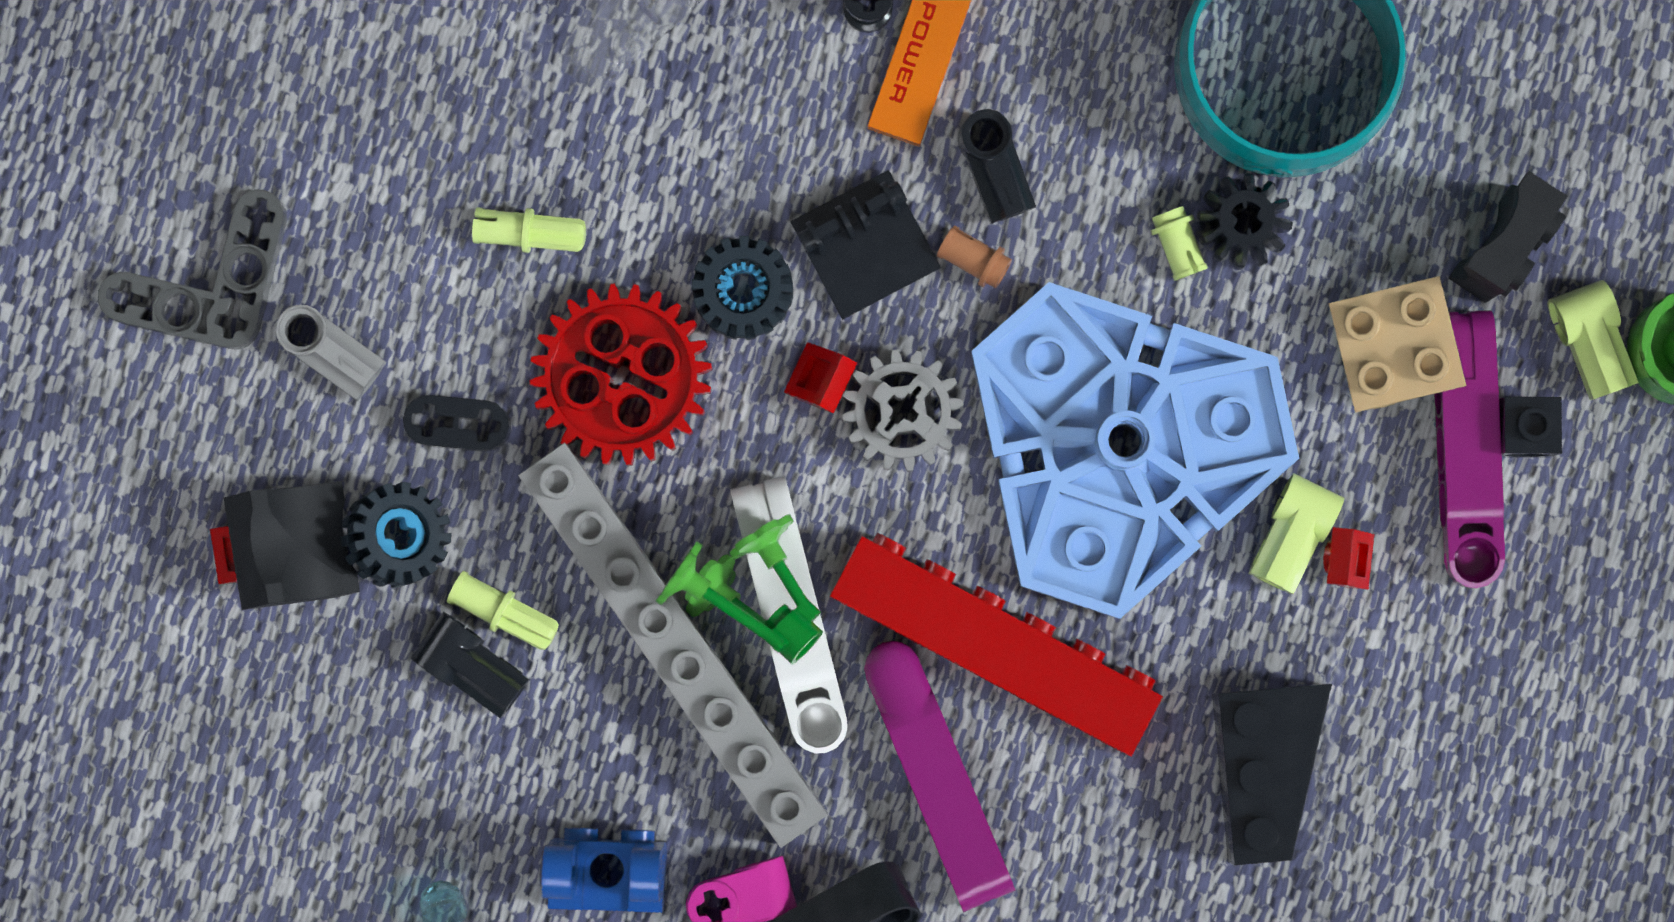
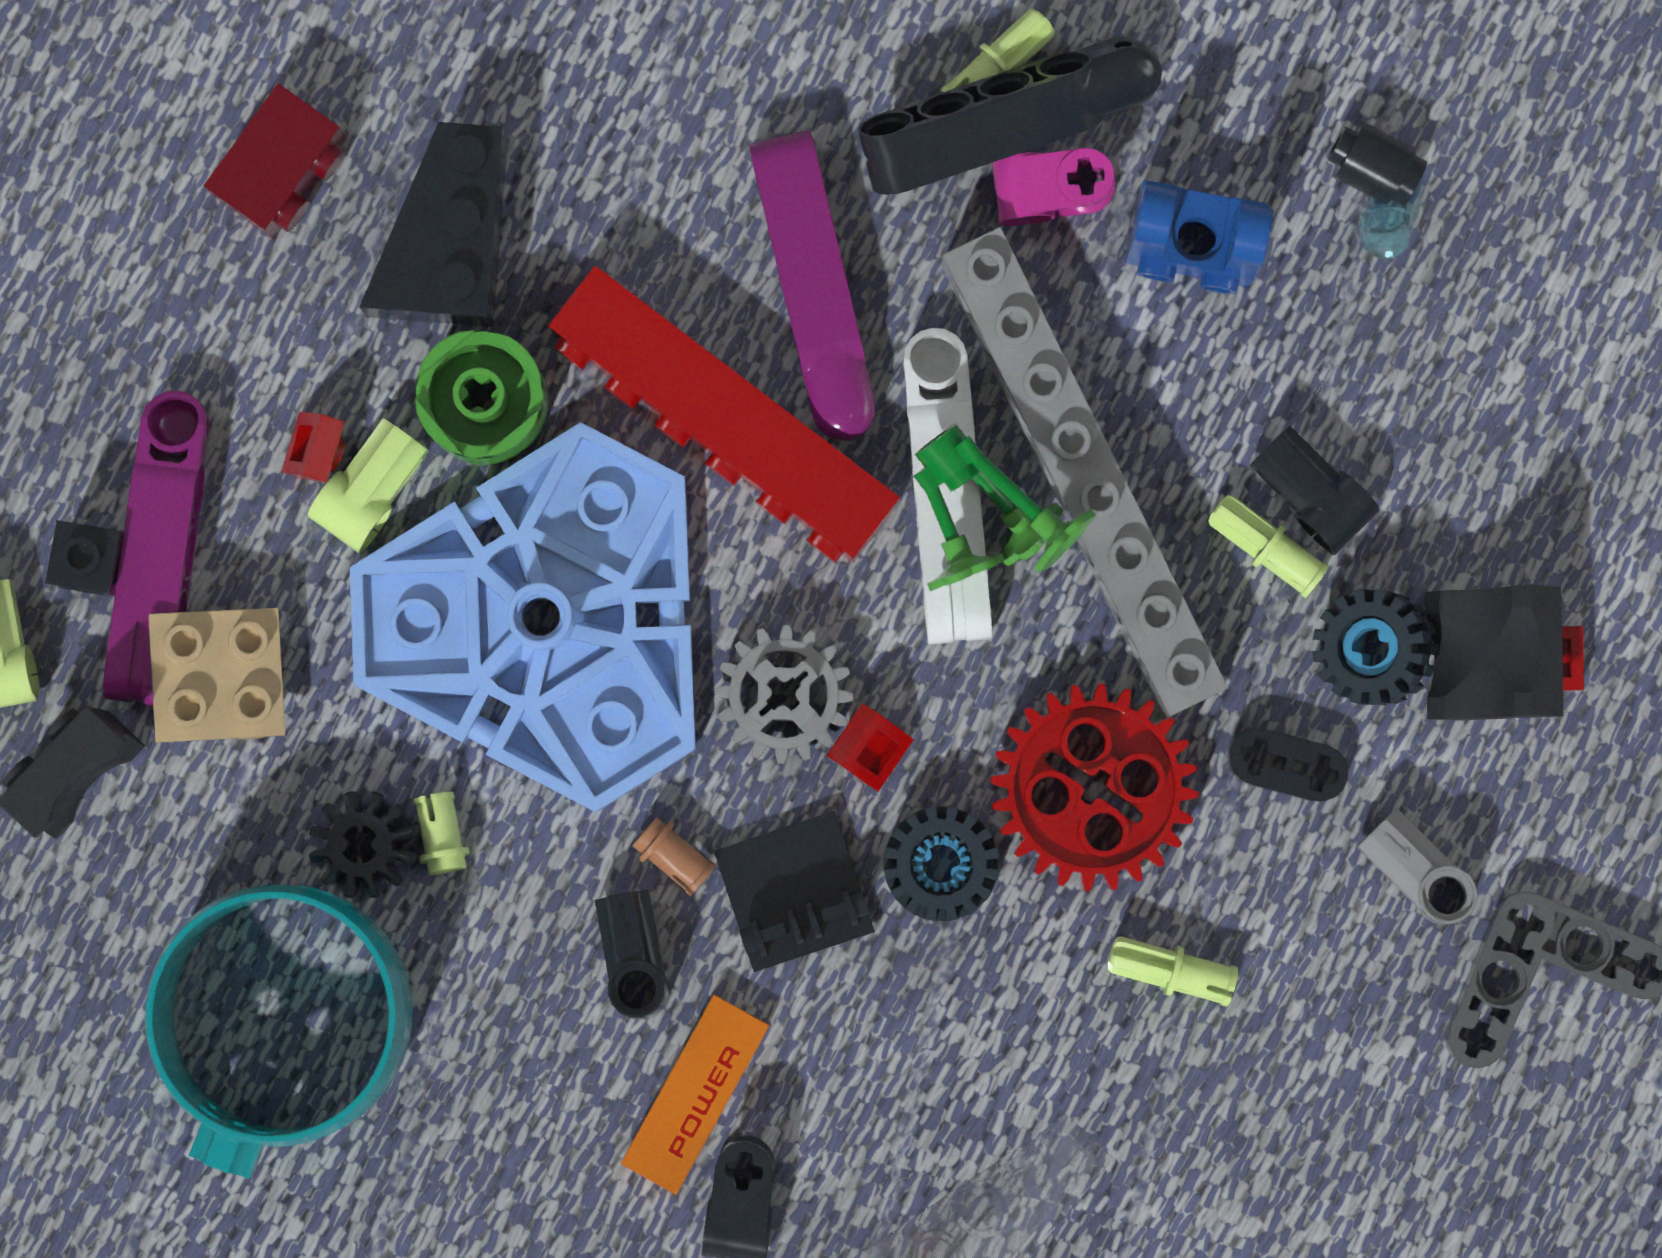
camera: 170 degrees left, 0 degrees up
(1242, 622) = (486, 361): none -> bright green brick
(1427, 804) = (278, 162): none -> dark red brick

